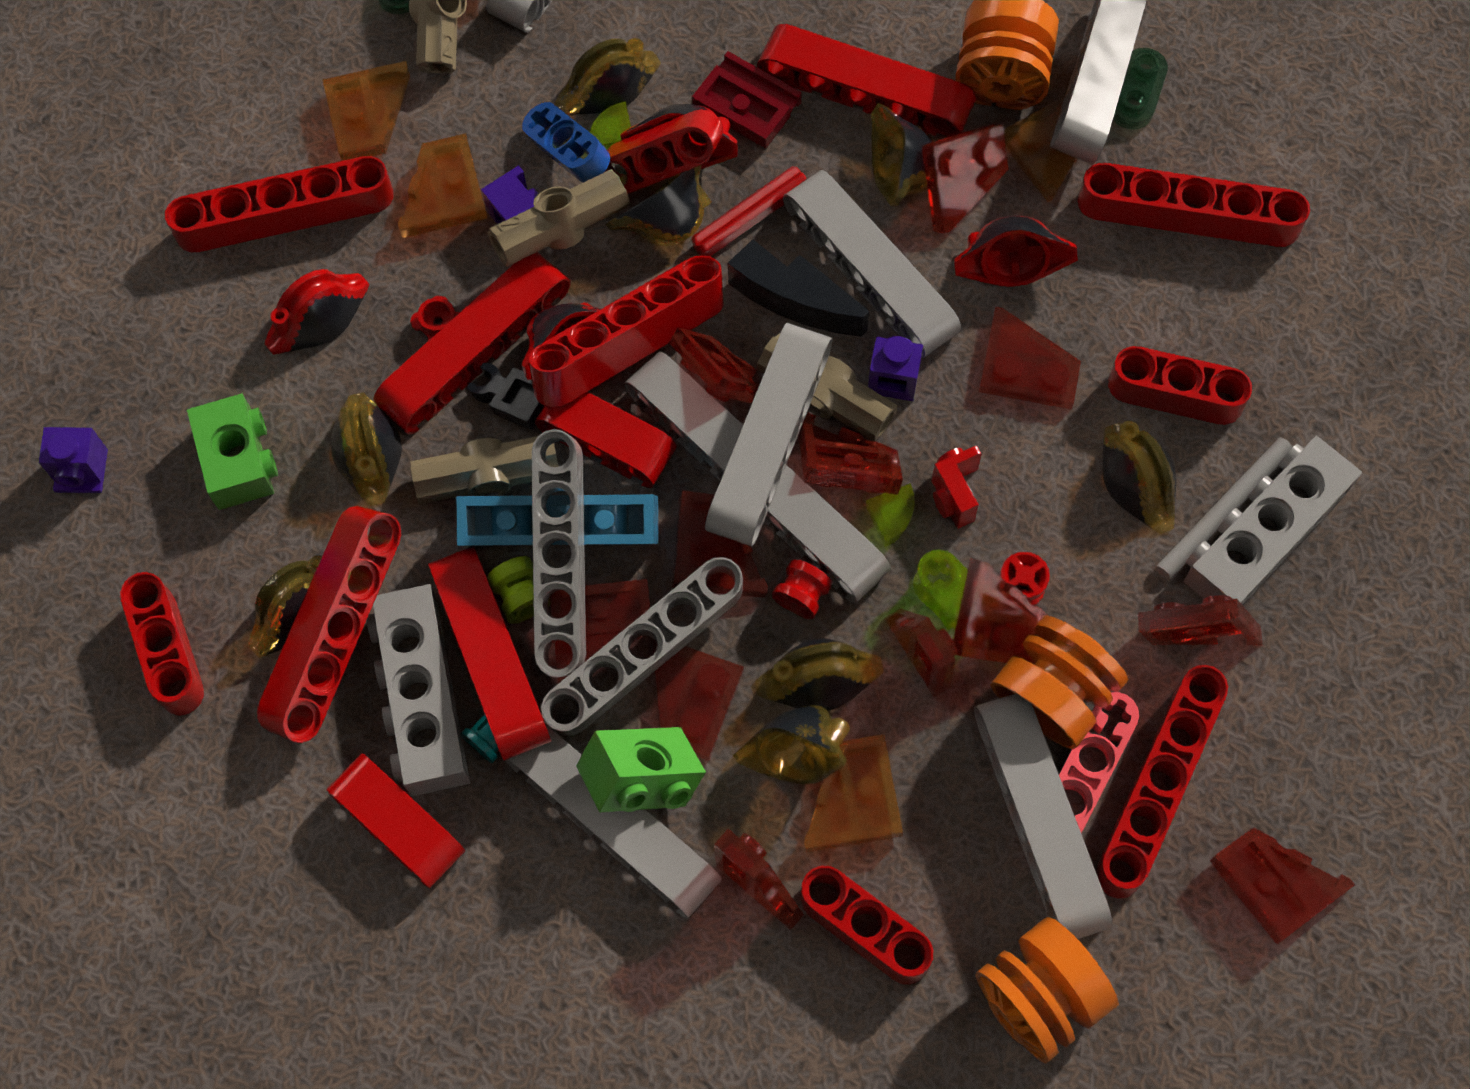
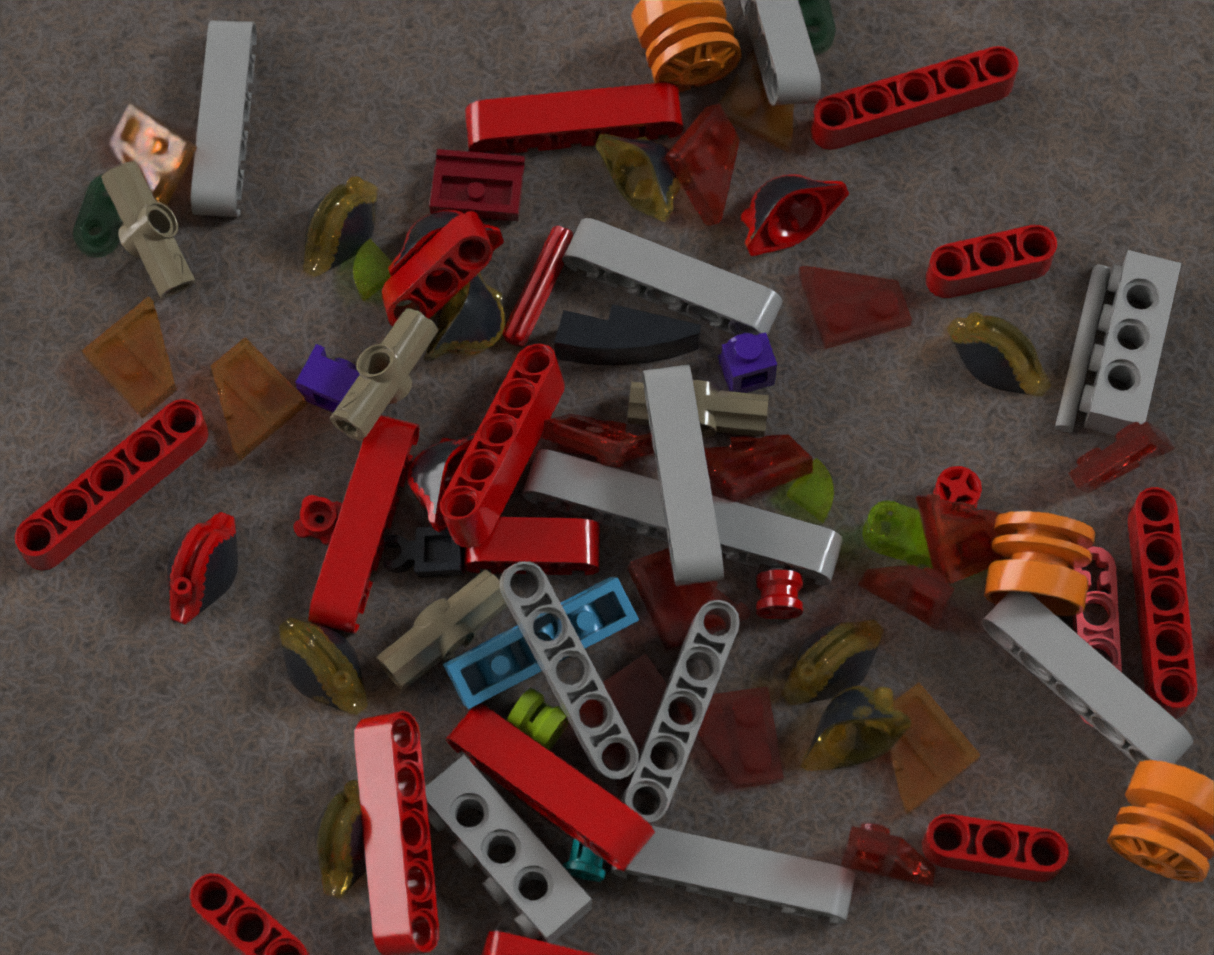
camera: 30 degrees left, 0 degrees up
(73, 459) = (67, 811): dark purple brick -> none
(216, 431) = (188, 709): bright green brick -> none
(568, 154) = (356, 313): blue beam -> none
(640, 769) = (741, 817): bright green brick -> none
(952, 491) = (857, 448): red bracket -> none

